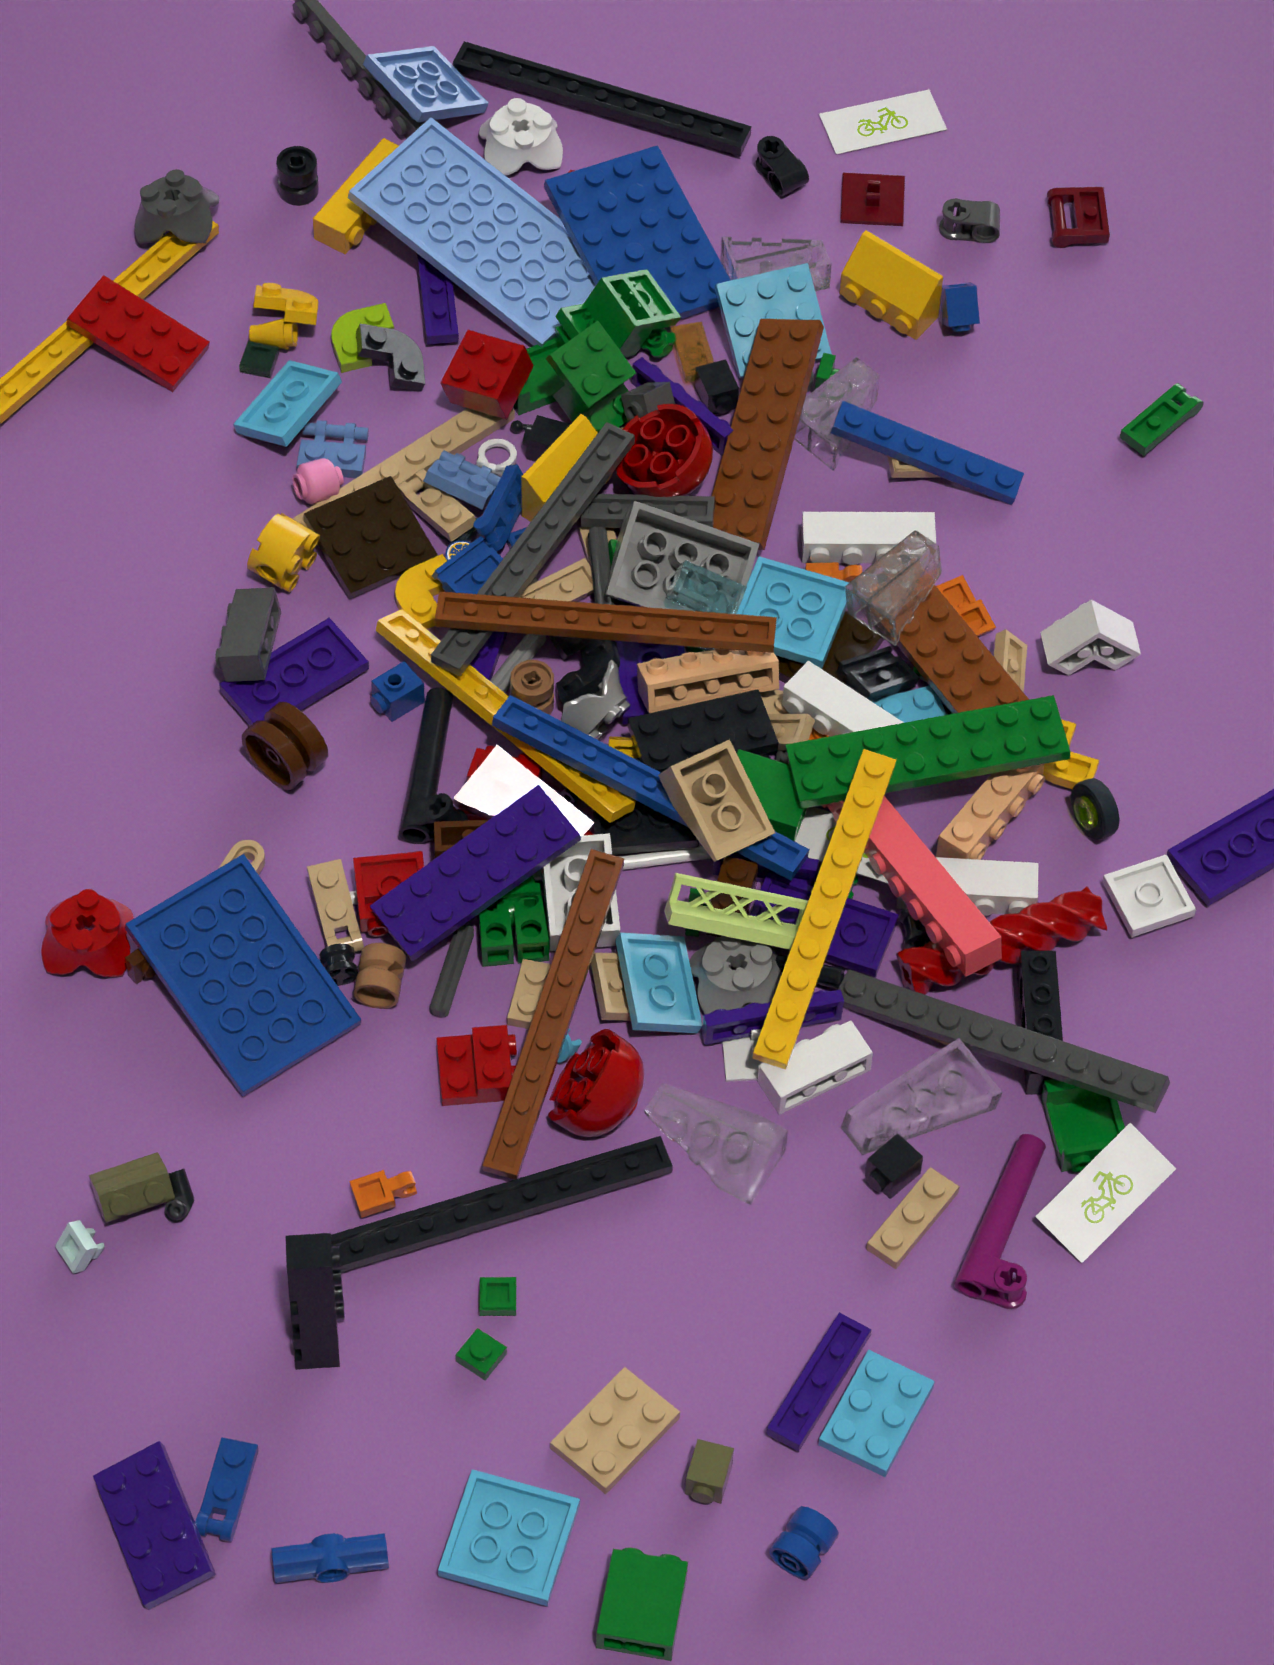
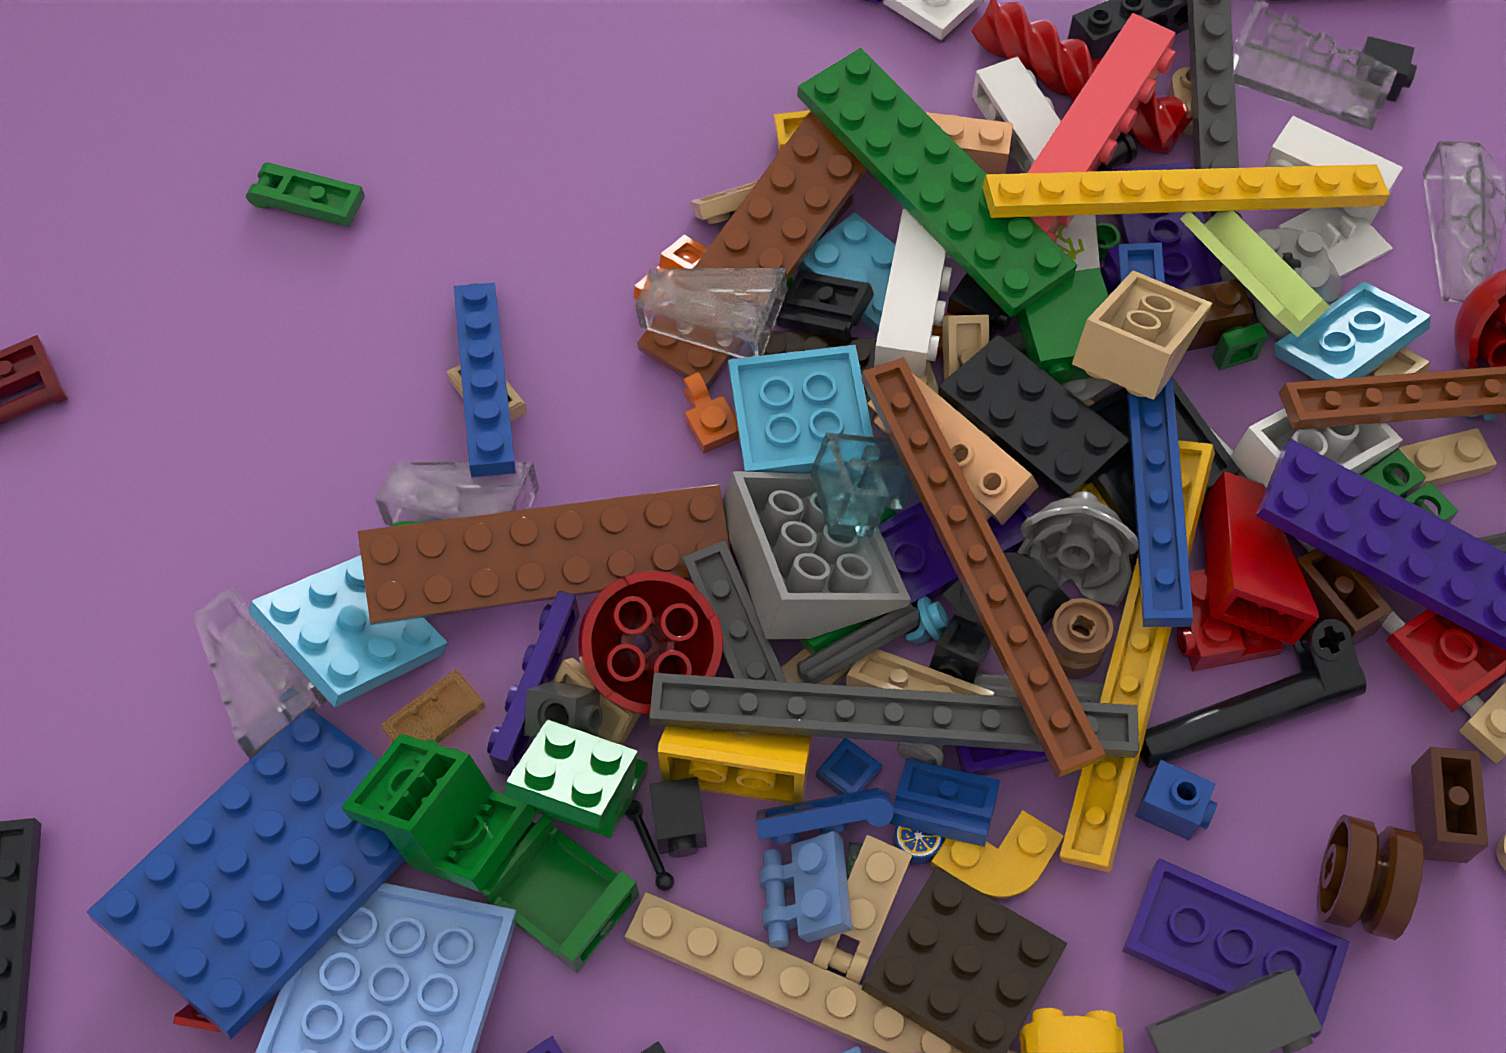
camera: 115 degrees left, 5 degrees up
(299, 822) = (1449, 804): none -> reddish brown brick
(487, 374) = (634, 928): red brick -> none
(496, 469) = (752, 890): white piece -> none
(717, 387) = (485, 655): black brick -> none
(737, 1023) = (1345, 246): dark purple plate -> none
(780, 166) = (52, 753): black piece -> none
(859, 535) = (634, 396): white brick -> none
(872, 199) = (61, 629): dark red piece -> none
(892, 285) = (228, 519): yellow slope -> none
(912, 1218) = (1432, 46): tan plate -> none
(959, 306) = (224, 438): blue brick -> none
(973, 220) = (68, 492): dark grey piece -> none
(1090, 635) = (669, 131): white brick -> none
(1095, 809) = (882, 43): black wheel -> none

